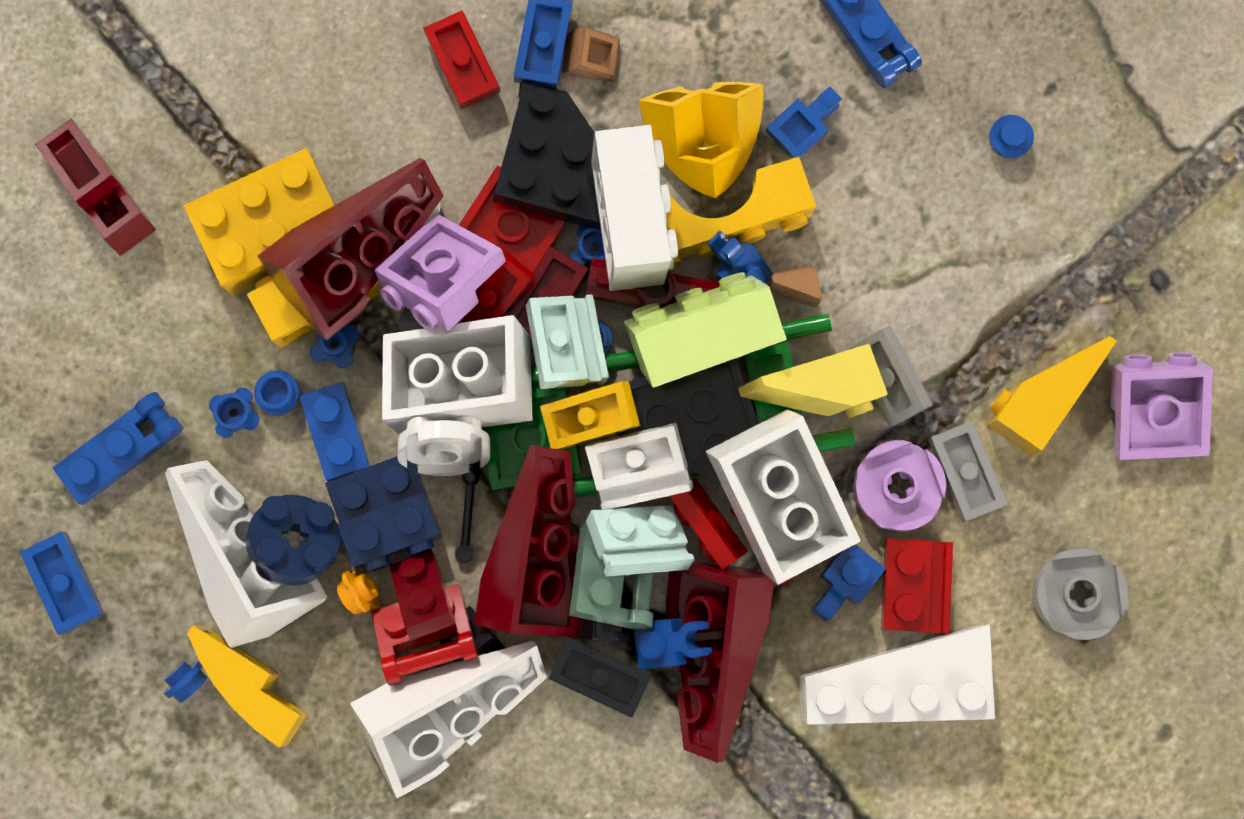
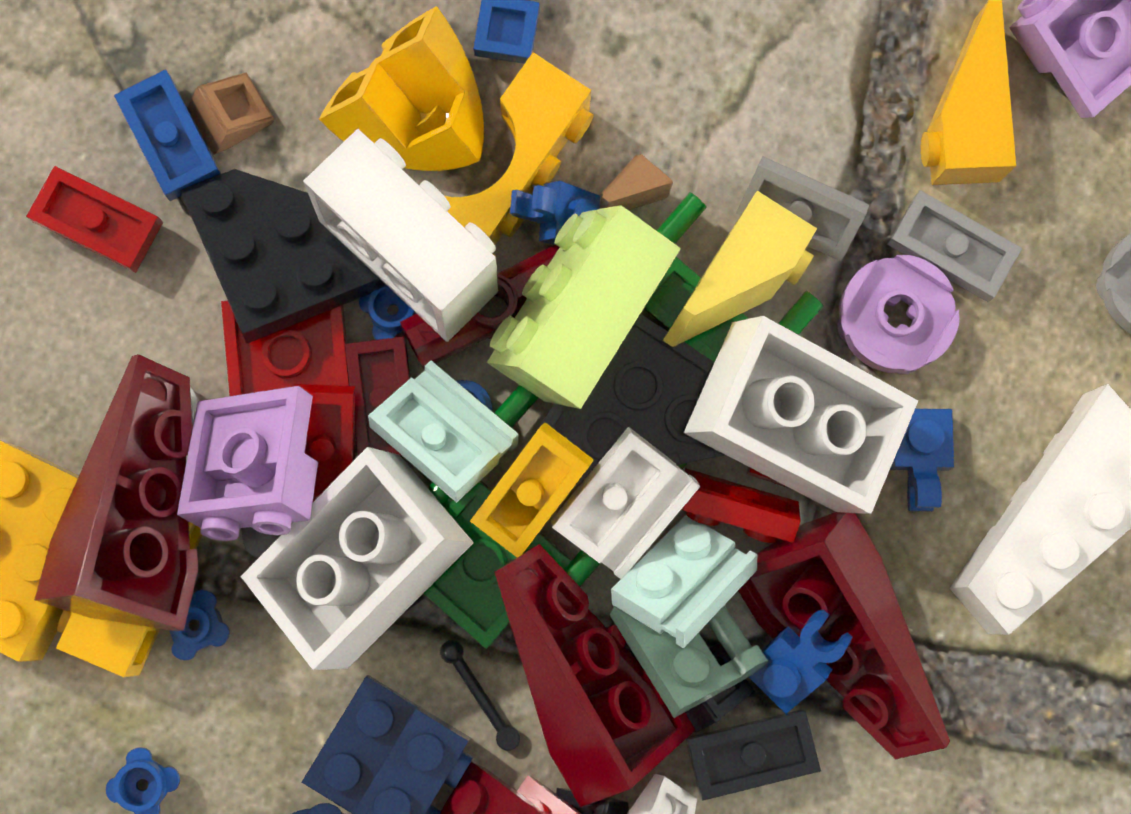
camera: 40 degrees left, 0 degrees up
(277, 393) = (173, 726): blue plate -> none
(334, 431) = (268, 718): blue plate -> none
(443, 445) = (399, 644): white plate -> none
(917, 585) = (995, 402): red plate -> none

